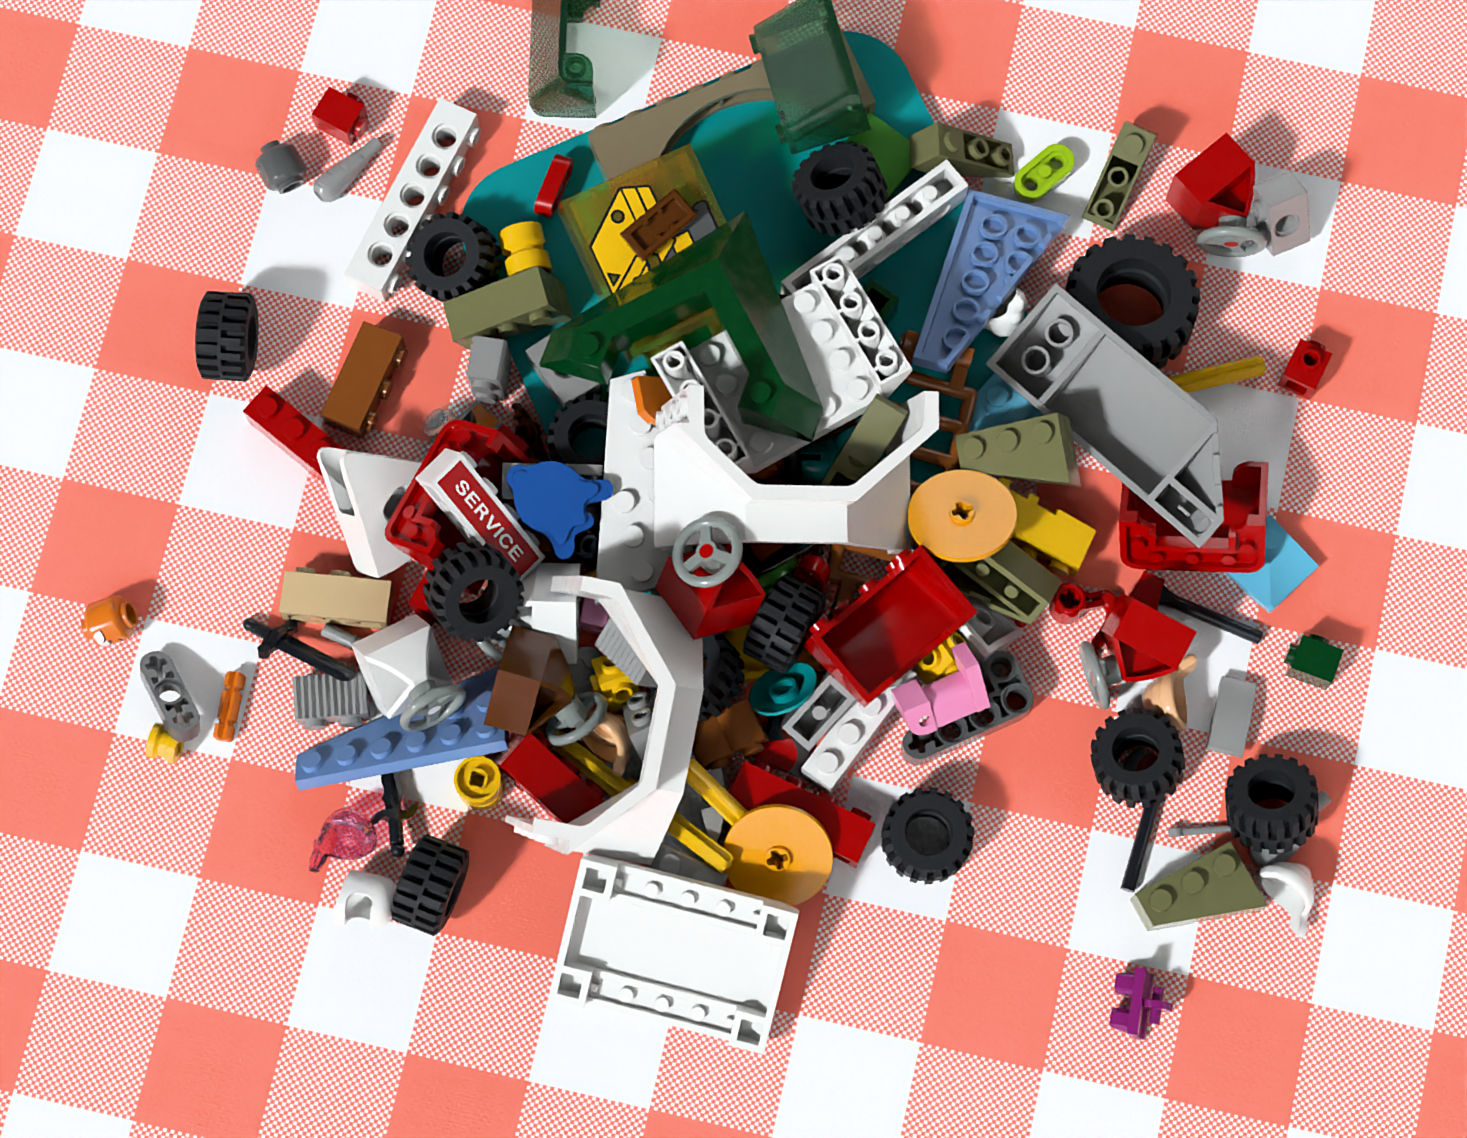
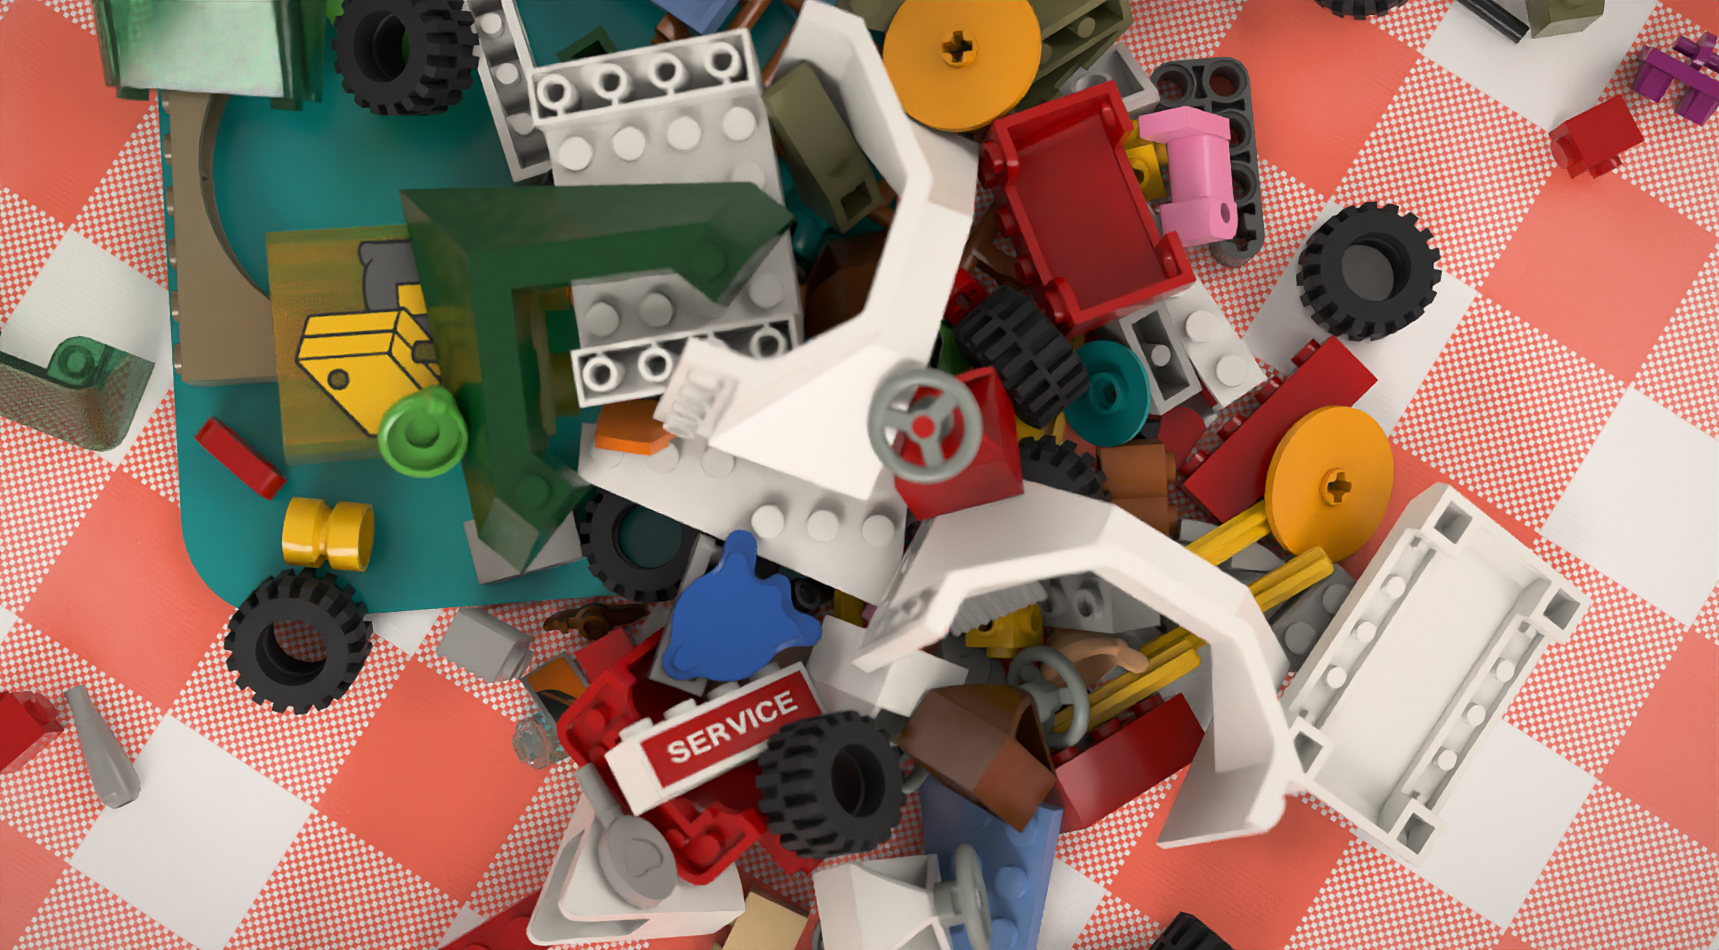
camera: 70 degrees left, 10 degrees up
(280, 167) = (59, 845): dark grey head -> none
(364, 380) = (432, 829): dark orange brick -> none
(394, 486) = (630, 848): none -> light grey piece
(444, 122) = (81, 583): white brick -> none
(479, 783) = (1086, 865): yellow wheel -> none
(508, 307) = (404, 588): olive wedge -> none
(602, 275) = (423, 433): none -> bright green hat
(658, 225) = (375, 323): reddish brown plate -> none
(1073, 957) = (1595, 139): none -> red brick

